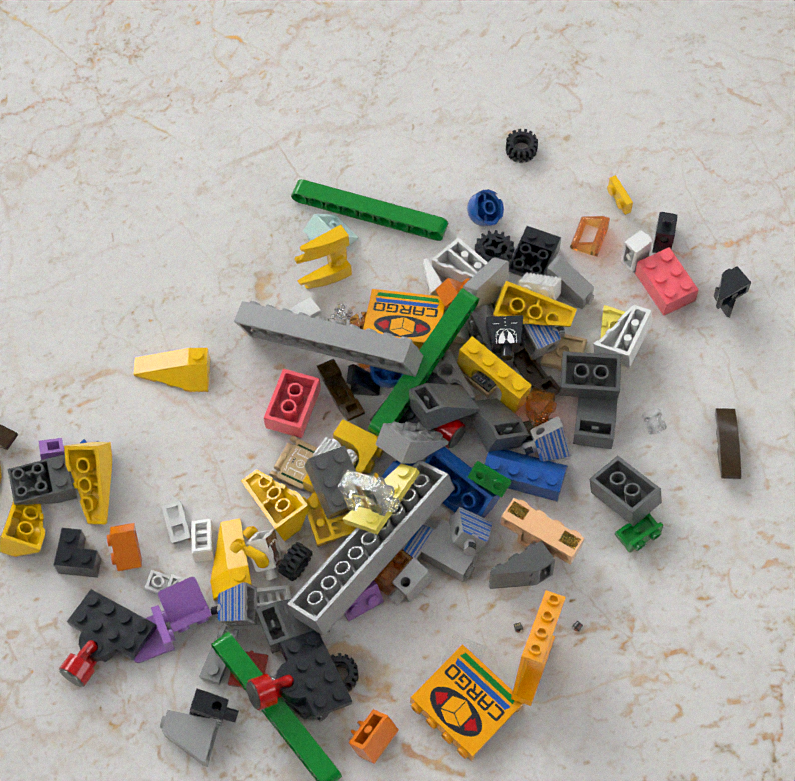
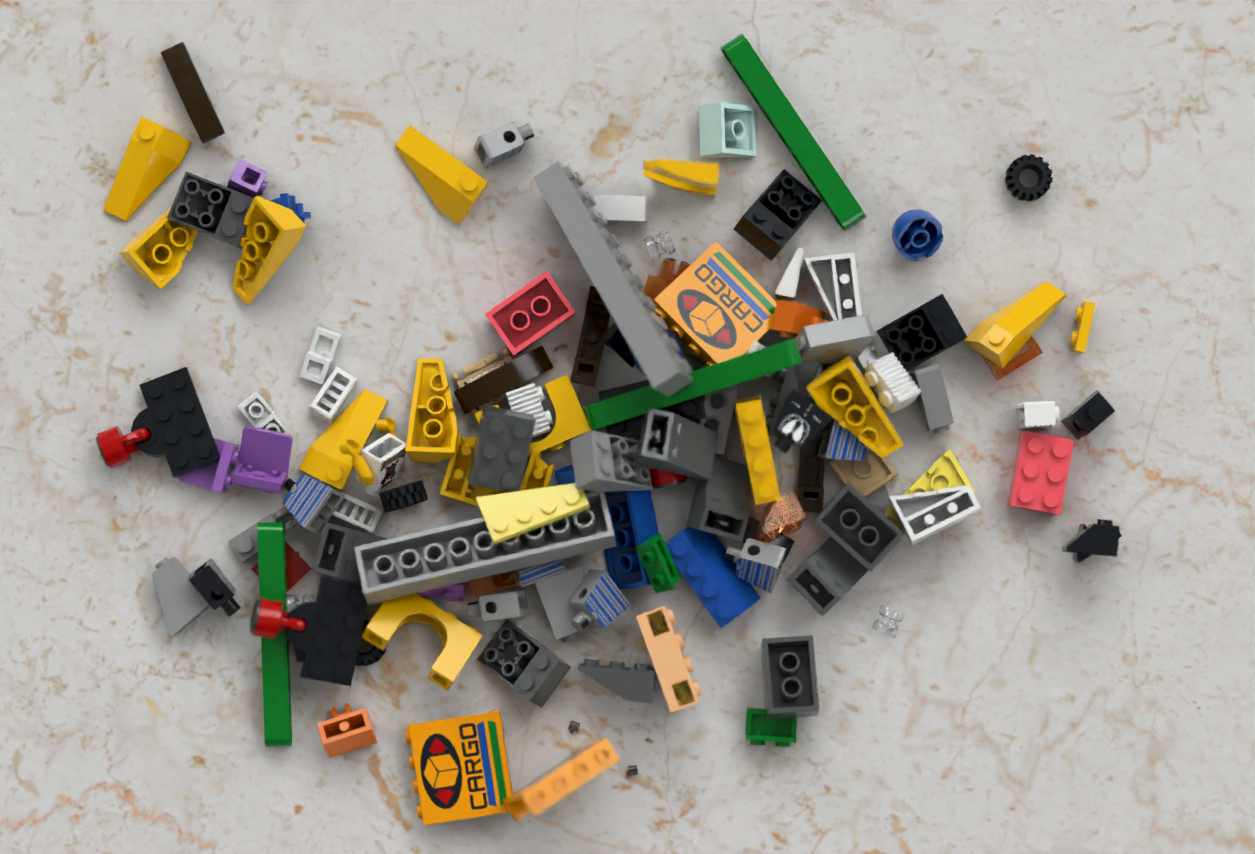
camera: 40 degrees right, 25 degrees up
(73, 558) = (188, 316): black brick -> none
(125, 547) = (246, 351): orange brick -> none
(199, 326) = (493, 148): none -> light grey torso
(305, 448) = (503, 379): none -> dark brown slope
(368, 493) = (518, 513): clear hips -> none
(396, 256) = (777, 214): none -> black slope
(396, 623) = (456, 637): none -> yellow arch
(454, 608) = (524, 663): none -> dark grey slope
(494, 246) = (900, 293): black gear -> none
(581, 220) = (1010, 328): none -> yellow wedge
(728, 443) = (942, 703): dark brown slope -> none

